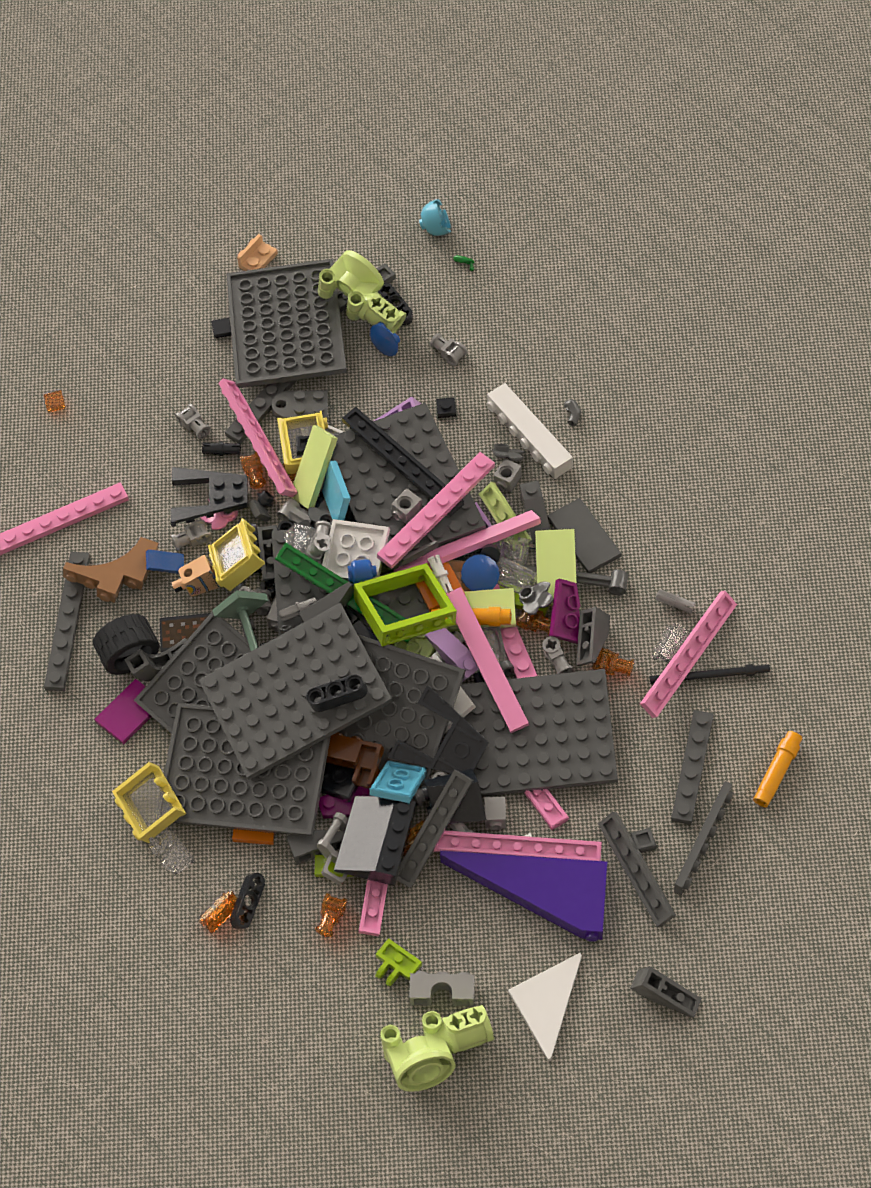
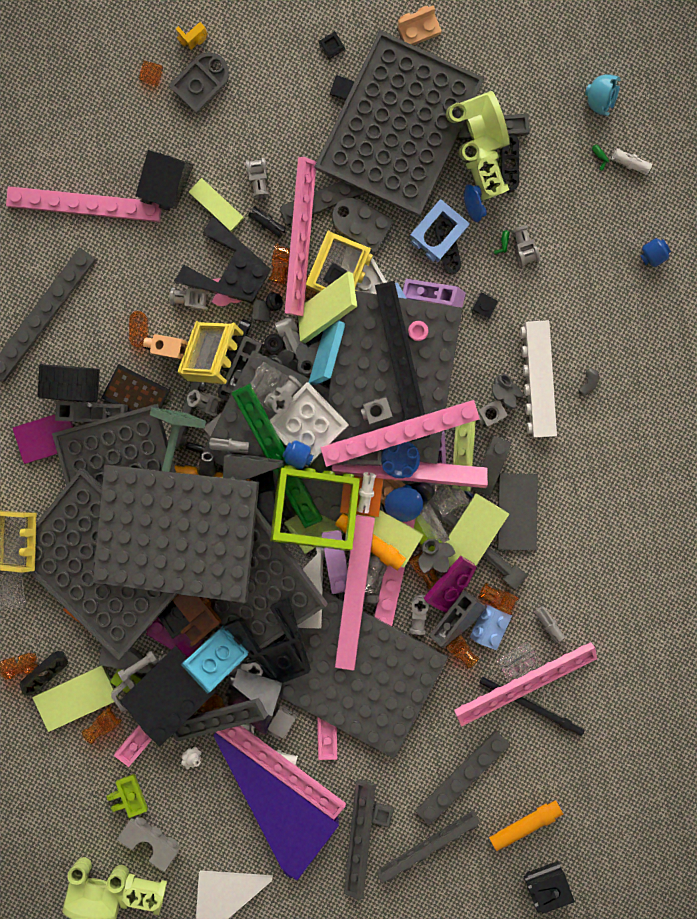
camera: 25 degrees right, 30 degrees up
(75, 358) = (193, 37): none -> yellow bracket
(99, 384) = (199, 82): none -> dark grey plate
(111, 576) = (94, 300): medium nougat arch -> none
(114, 459) = (163, 180): none -> black slope
(157, 586) = (133, 328): none -> clear orange beam
(164, 561) = (150, 313): blue tile -> none
(167, 459) = (216, 205): none -> yellowish green tile
(193, 305) = (331, 45): none -> black tile
(291, 908) = (75, 698): none -> yellowish green tile
(327, 691) = (209, 572): black beam -> none
(372, 361) = (437, 252): none -> light blue panel
(384, 377) = (445, 261): none -> black beam
(400, 434) = (418, 331): none -> bright pink tile
(428, 354) = (504, 241): none -> green piece
(433, 892) = (191, 758): none -> white plant
(452, 533) = (400, 460): none -> blue dish
(491, 250) = (631, 161): none -> white pin
(556, 296) = (655, 252): none -> blue head
(618, 605) = (501, 600): none -> clear orange connector
(626, 631) = (490, 627): none -> light blue bracket
(833, 806) = (548, 888): none -> black piece

